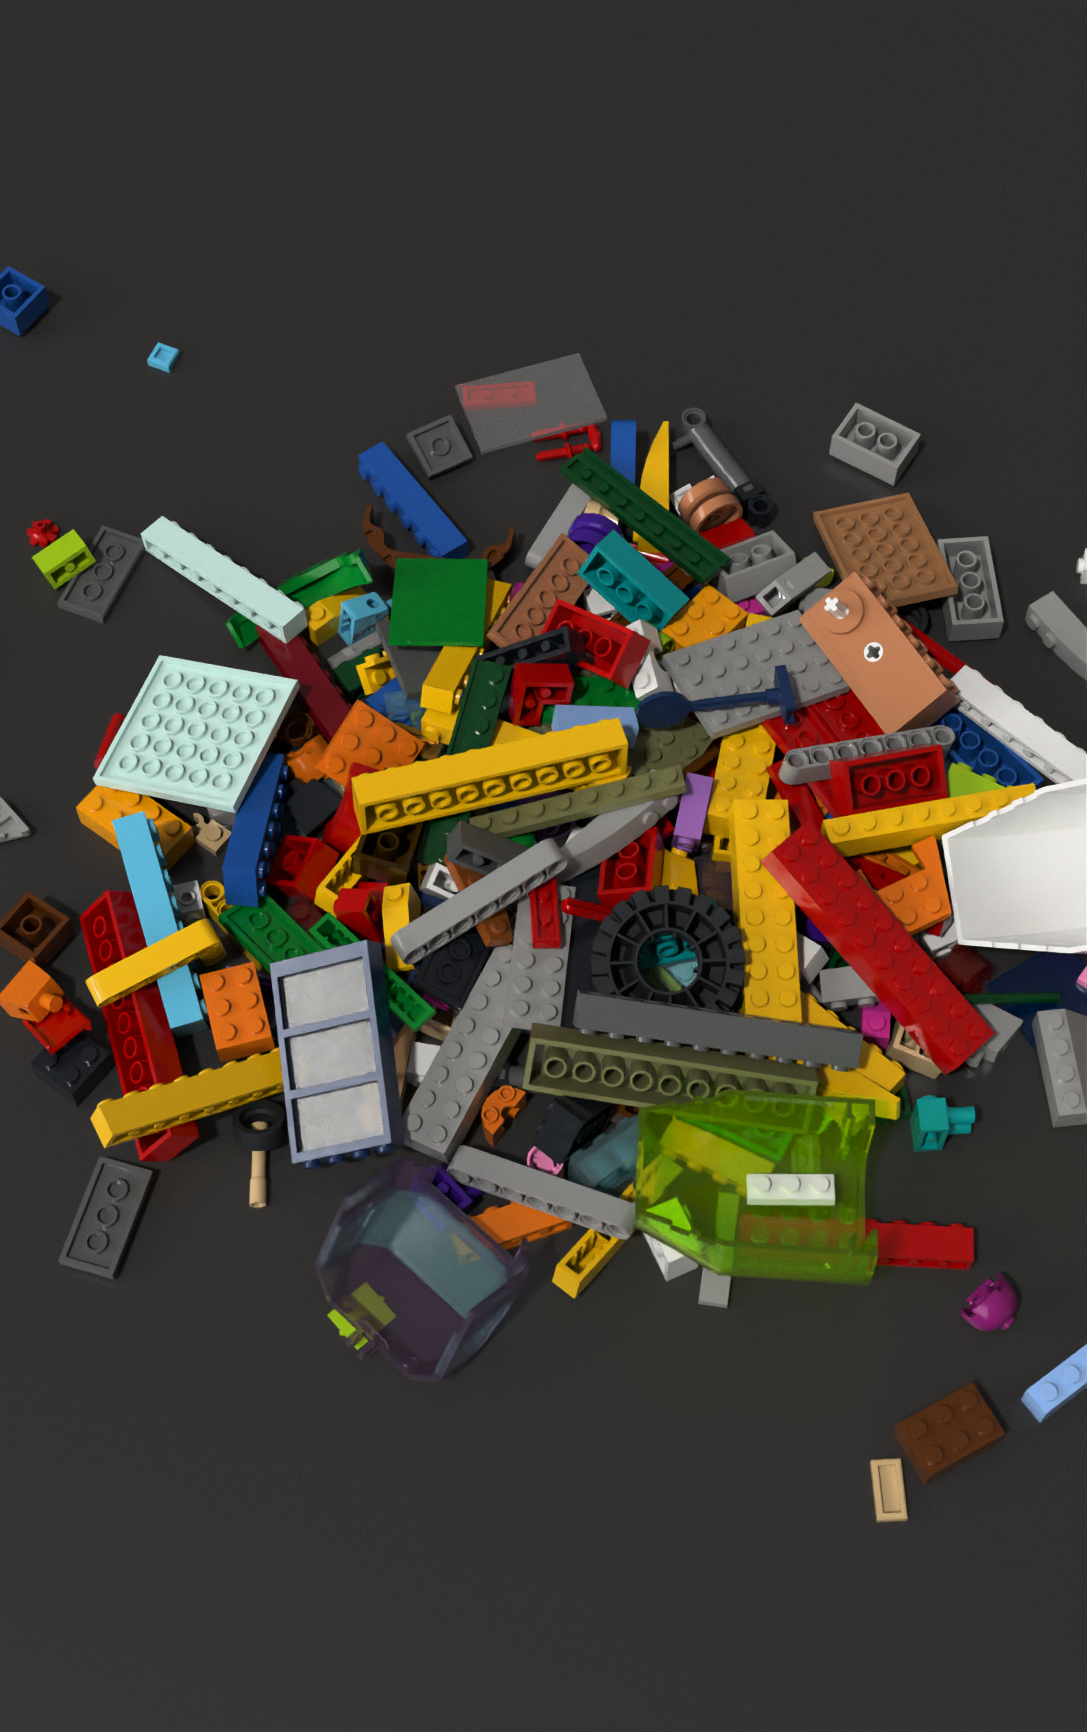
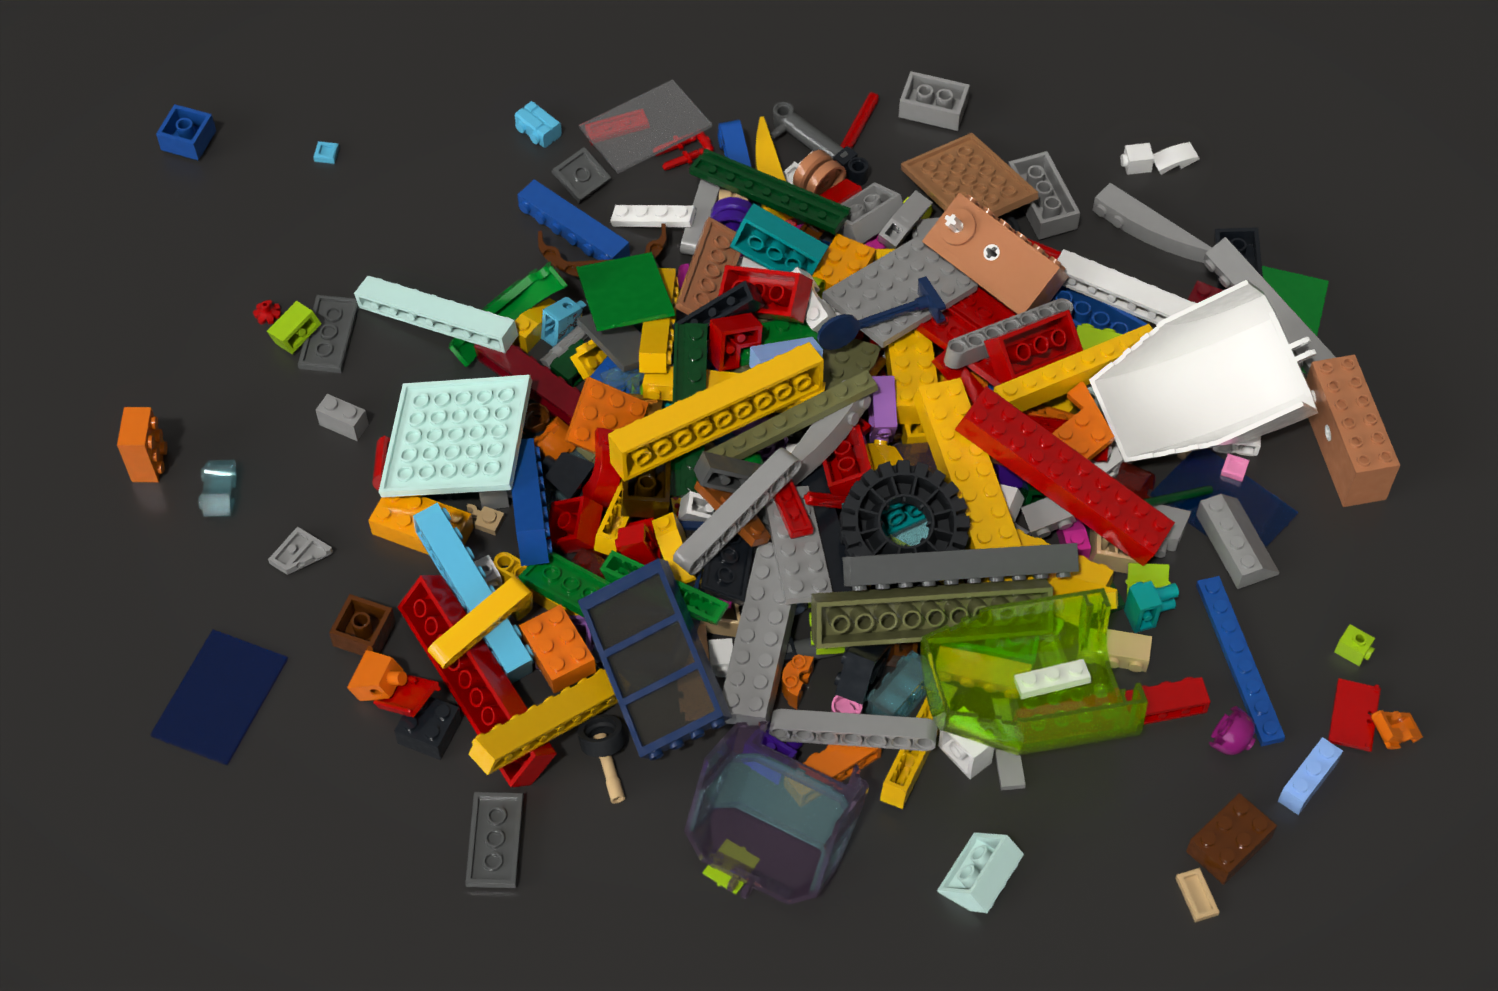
camera: 15 degrees left, 5 degrees down
(86, 677) = (342, 417): none -> light grey brick
(409, 375) = (537, 124): none -> medium azure brick
(506, 514) = (653, 215): none -> white plate
(643, 1397) = (981, 871): none -> light aqua slope
(785, 446) = (860, 120): none -> red axle
(894, 1171) = (1128, 650): none -> tan brick
(953, 1087) = (1149, 572): none -> lime piece
(1028, 1217) = (1240, 661): none -> blue plate

